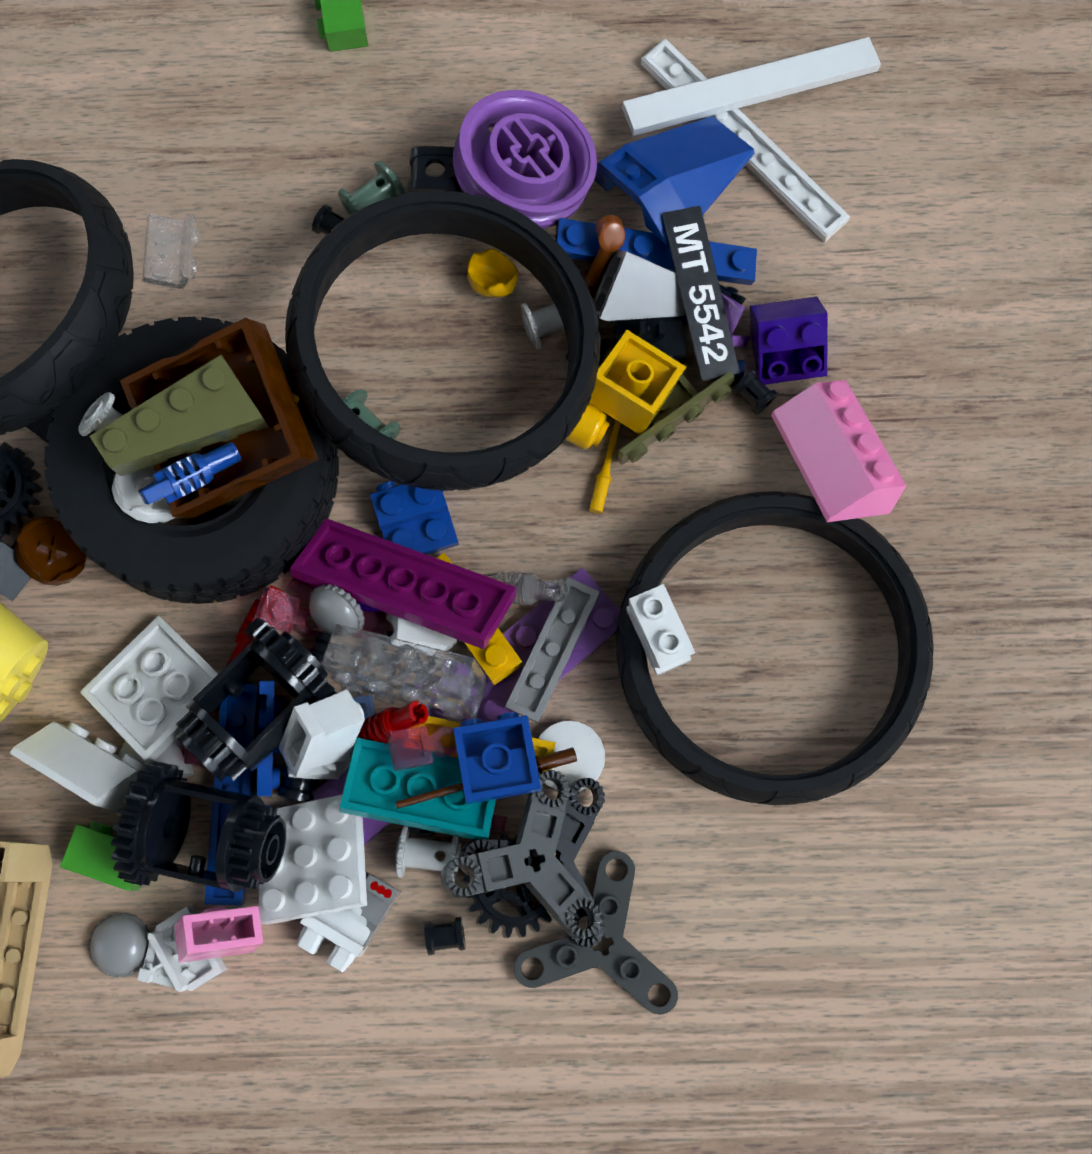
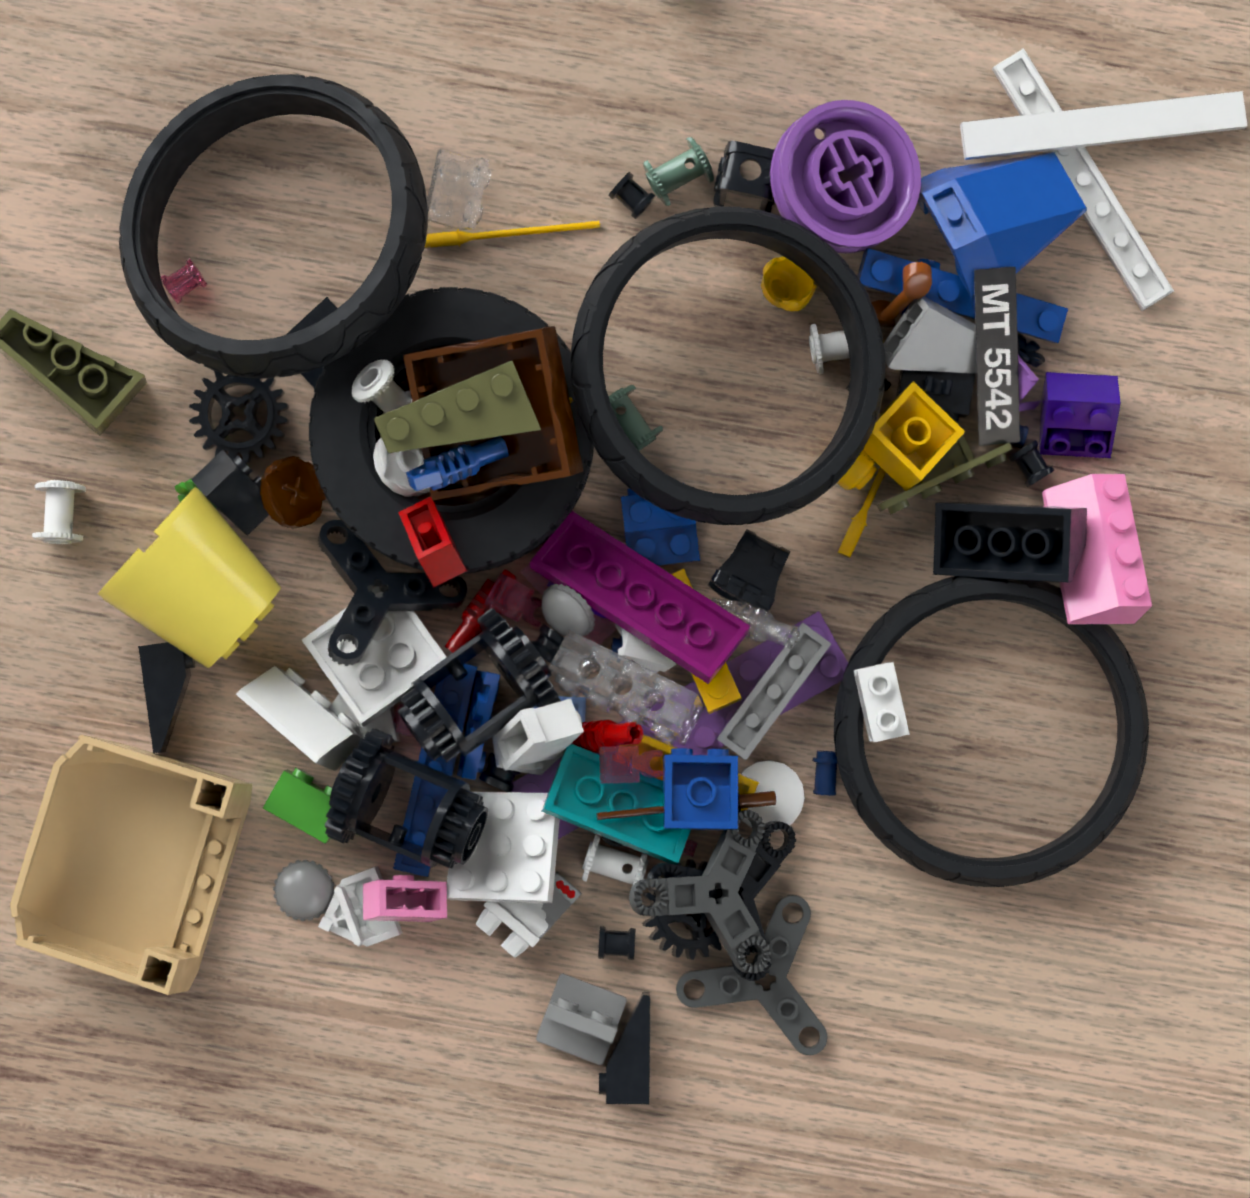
camera: 15 degrees right, 10 degrees up
(167, 625) = (365, 611): none -> black piece
(179, 559) = (432, 542): none -> red slope
(180, 294) = (459, 237): none -> yellow piece
(422, 1023) = (581, 1019): none -> light grey bracket
(480, 1066) = (629, 1063): none -> black slope
(507, 539) = (751, 572): none -> black piece
(620, 722) = (825, 773): none -> dark blue pin
(751, 455) = (1008, 541): none -> black slope

